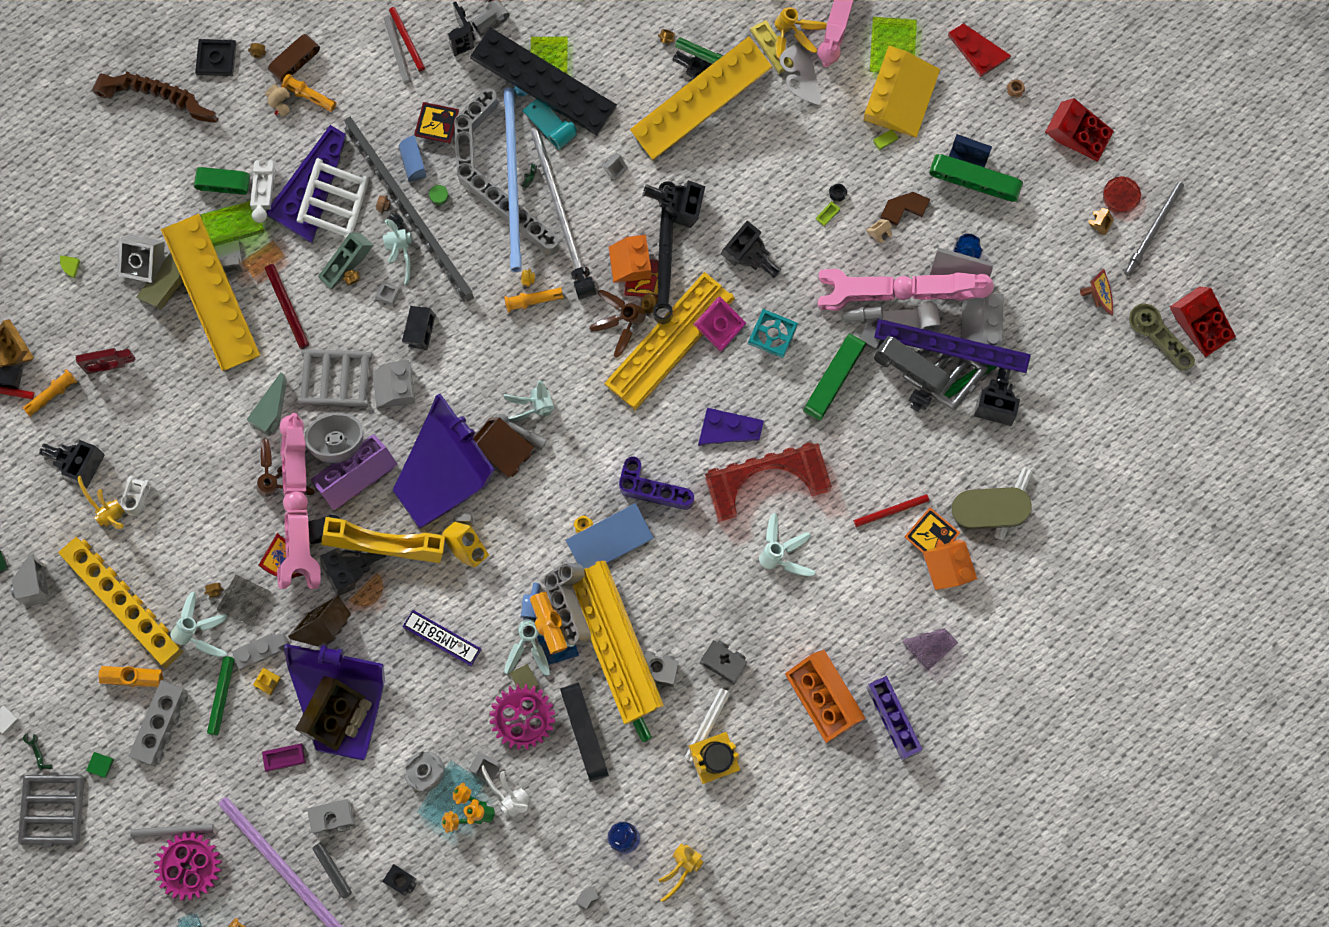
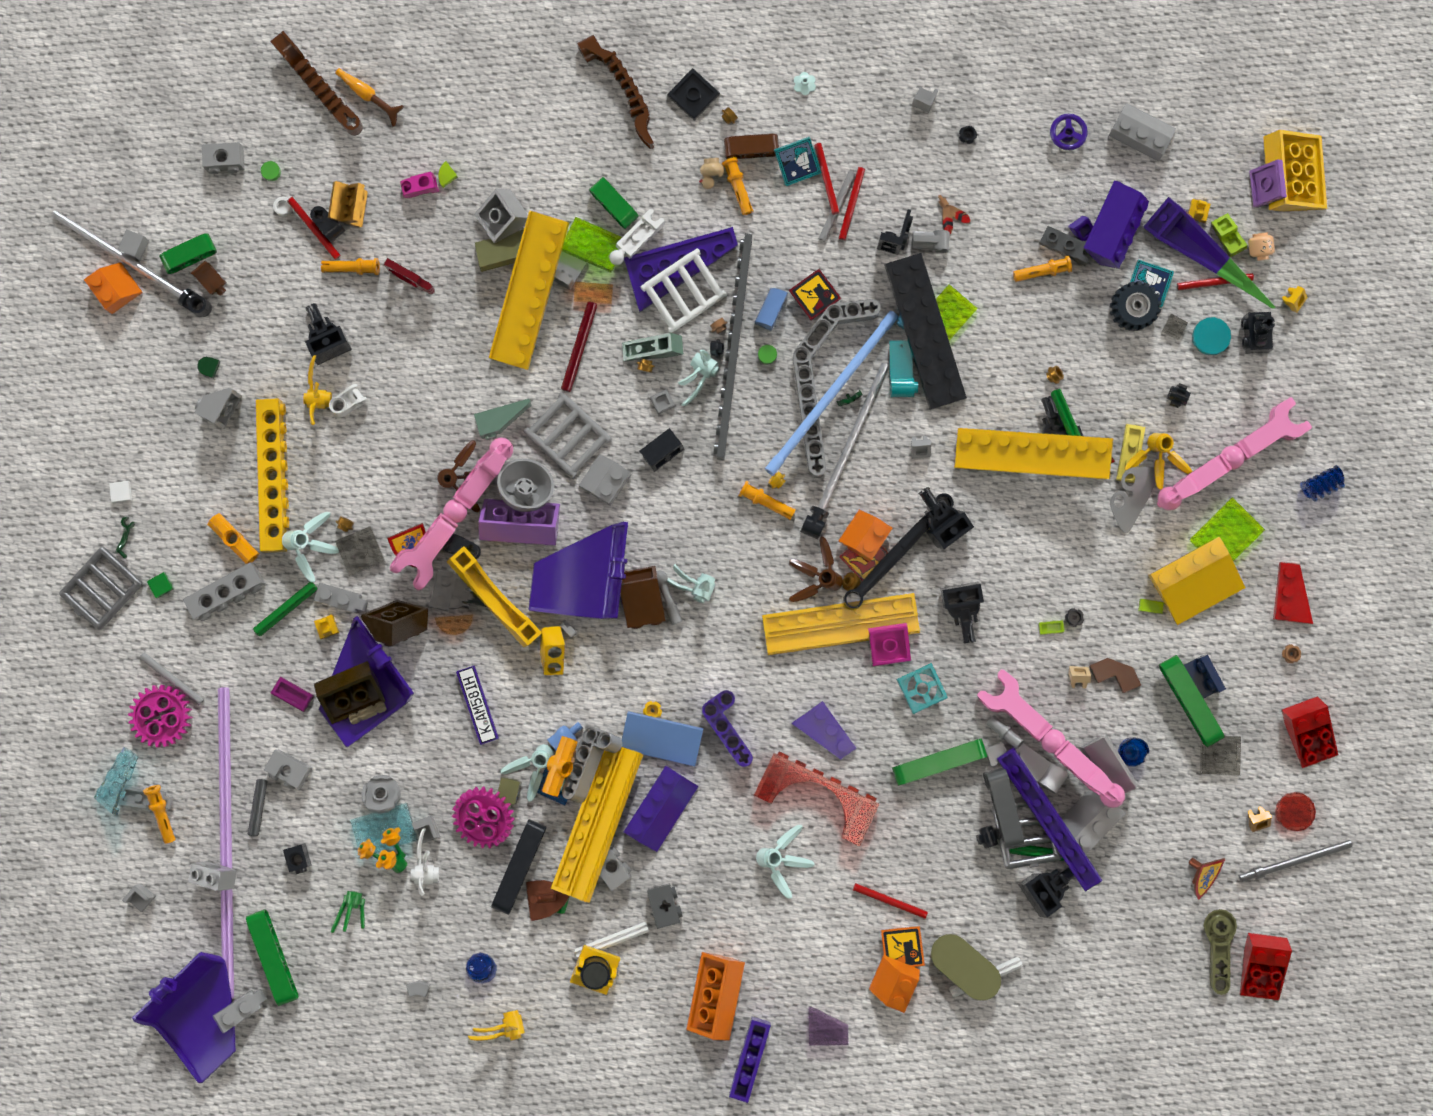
camera: 45 degrees right, 10 degrees up
(54, 289) = (419, 185): none -> dark pink leg
(338, 40) = (797, 161): none -> tile
(374, 37) = (826, 178): none -> red bar
(474, 875) = (351, 901): none -> green plant
(626, 739) = (544, 900): none -> copper shield
(655, 591) = (661, 808): none -> dark purple slope
(1034, 201) = (1221, 757): none -> clear smoke tile

